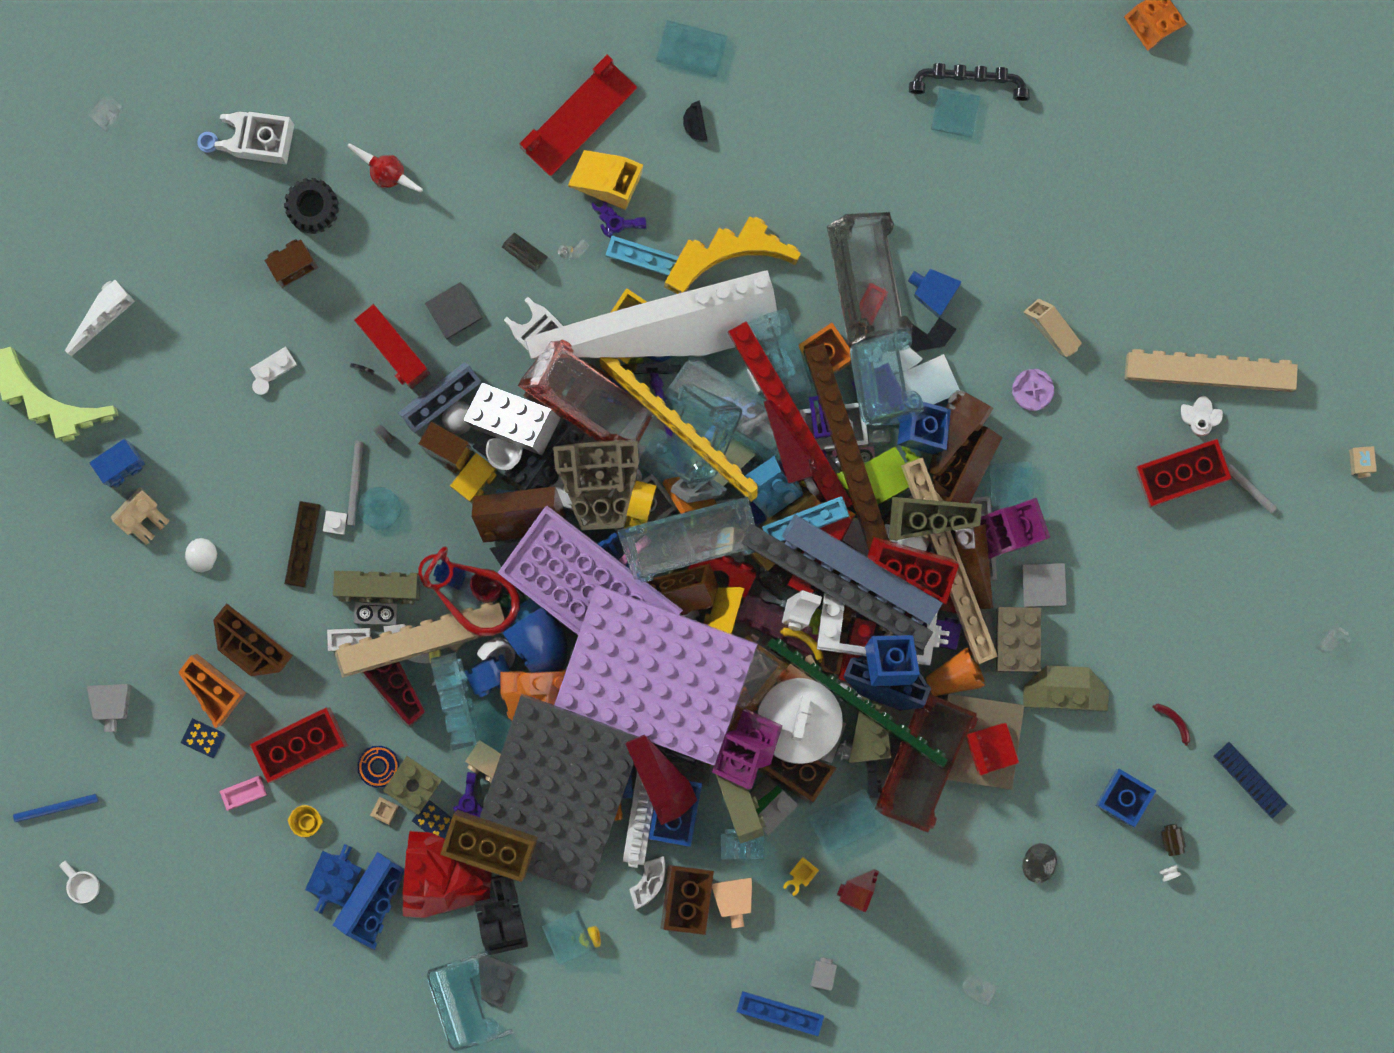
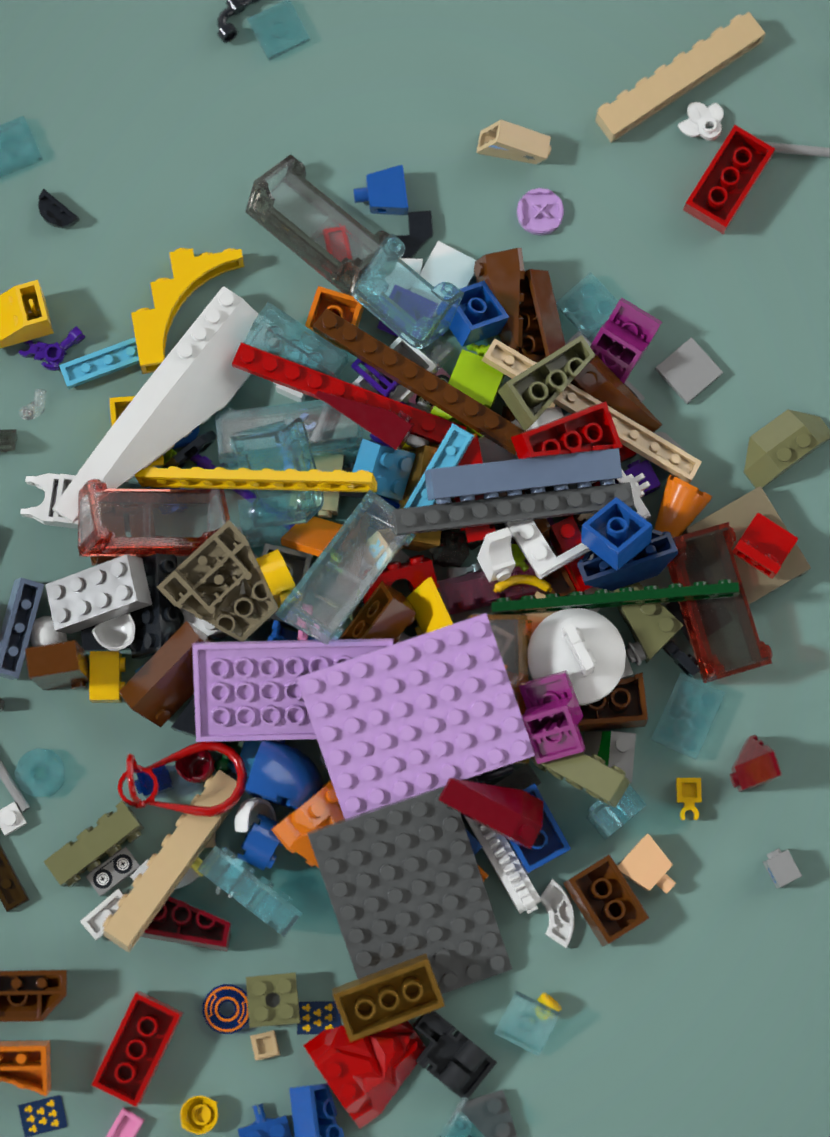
camera: 45 degrees left, 5 degrees down
(467, 802) = (335, 974): dark purple piece -> none
(483, 759) = (320, 923): tan brick -> none
(698, 491) = (318, 525): light grey wing -> none
(780, 1013) = (772, 935): blue plate -> none
(1018, 639) = (707, 433): dark tan brick -> none

